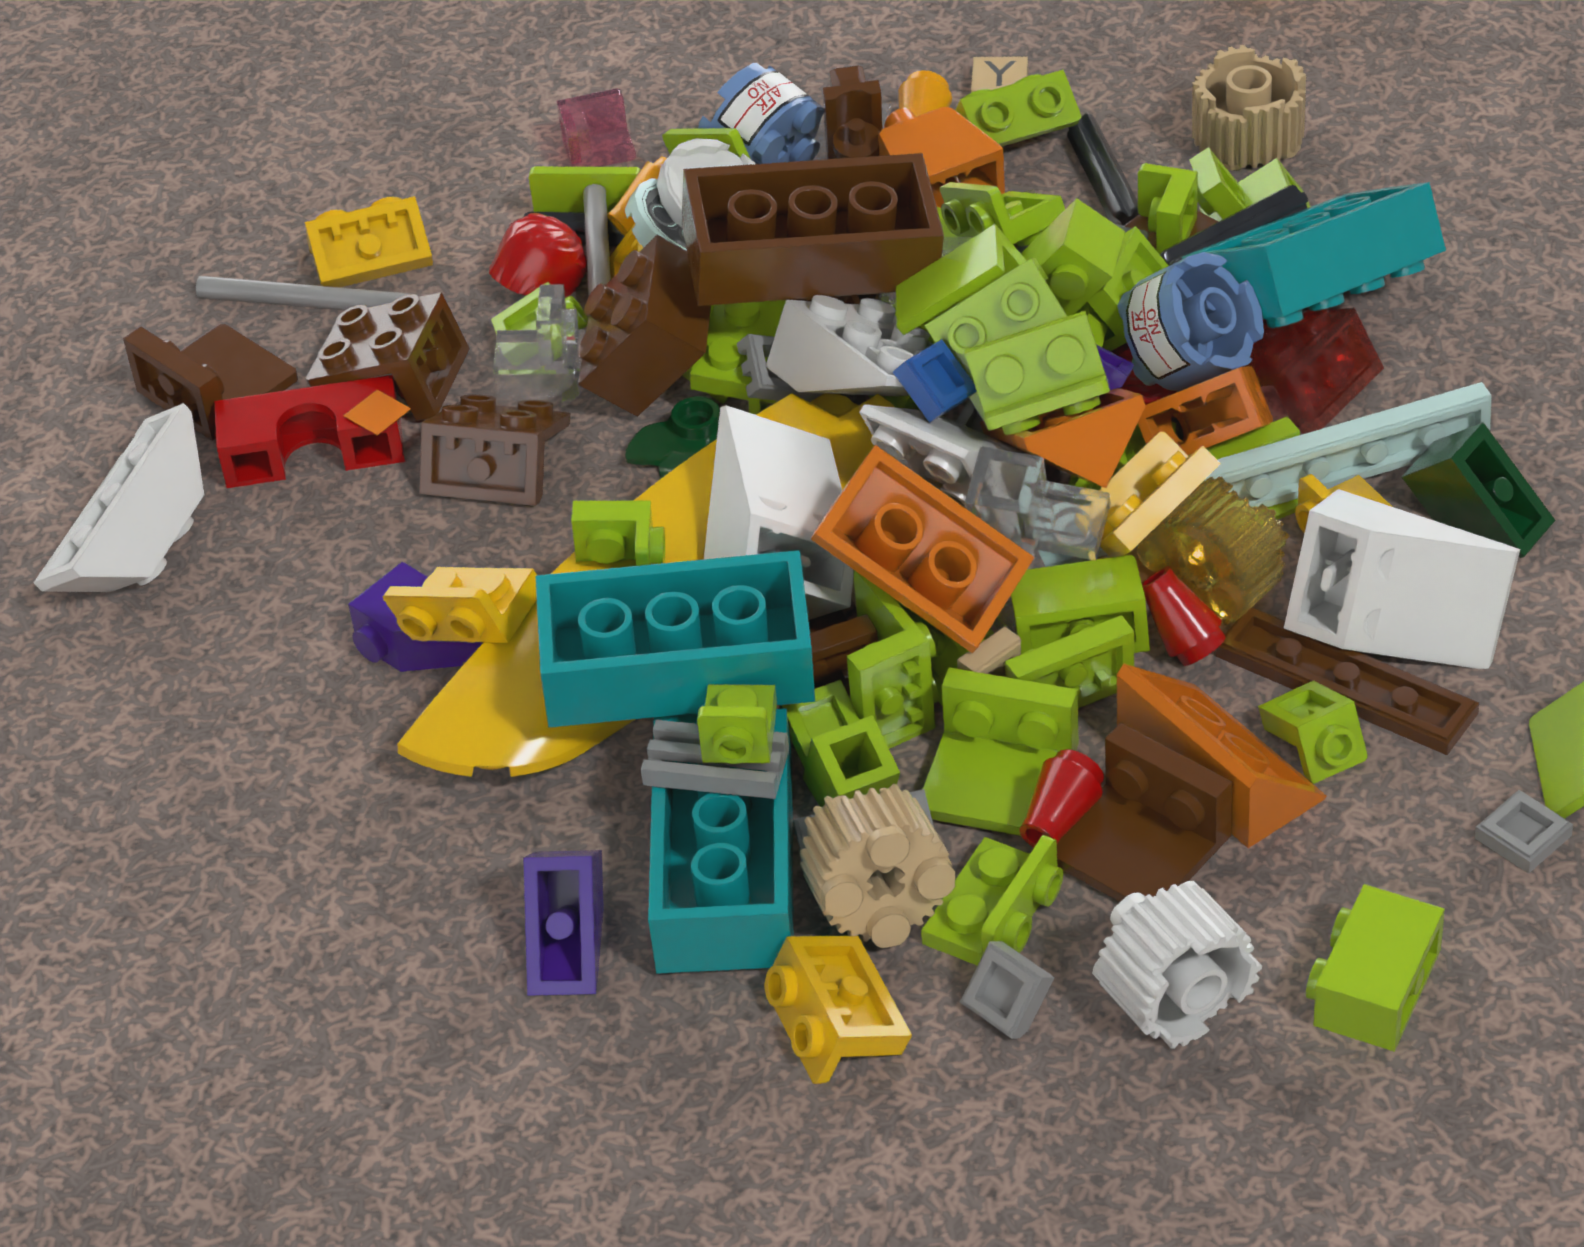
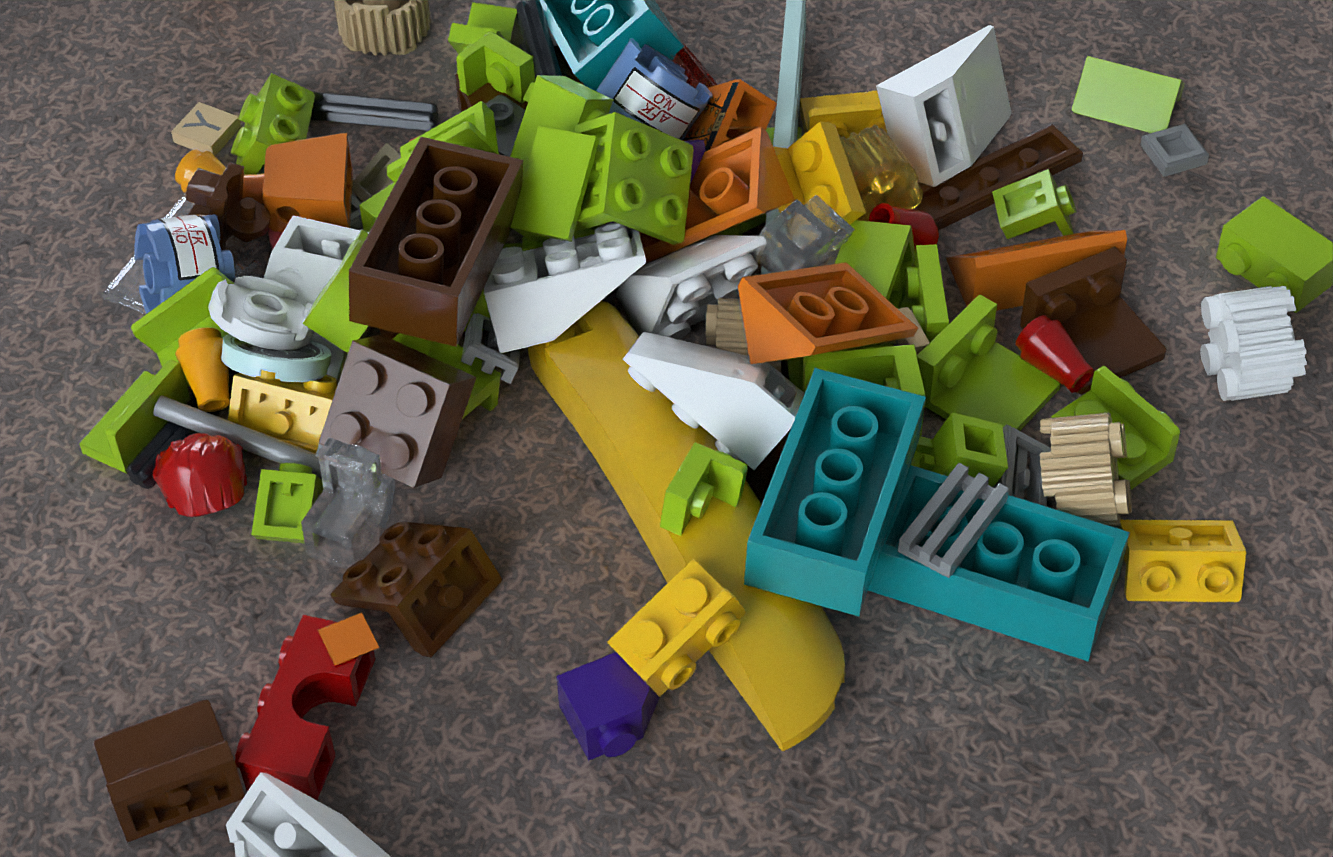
camera: 70 degrees left, 5 degrees up
(290, 293) = (94, 669): light grey bar -> none
(368, 242) = (75, 593): yellow bracket -> none
(408, 338) = (248, 615): reddish brown bracket -> none
(563, 921) = (1017, 693): dark purple slope -> none
(595, 129) = (55, 395): clear pink panel -> none
(672, 442) = (510, 457): dark green plate -> none
(737, 724) = (948, 482): lime bracket -> none
(935, 380) = (653, 234): blue tile -> none
(1007, 989) = (1213, 451): light grey tile -> none
(1038, 373) = (696, 175): lime bracket -> none
(1478, 489) = (856, 47): dark green slope -> none

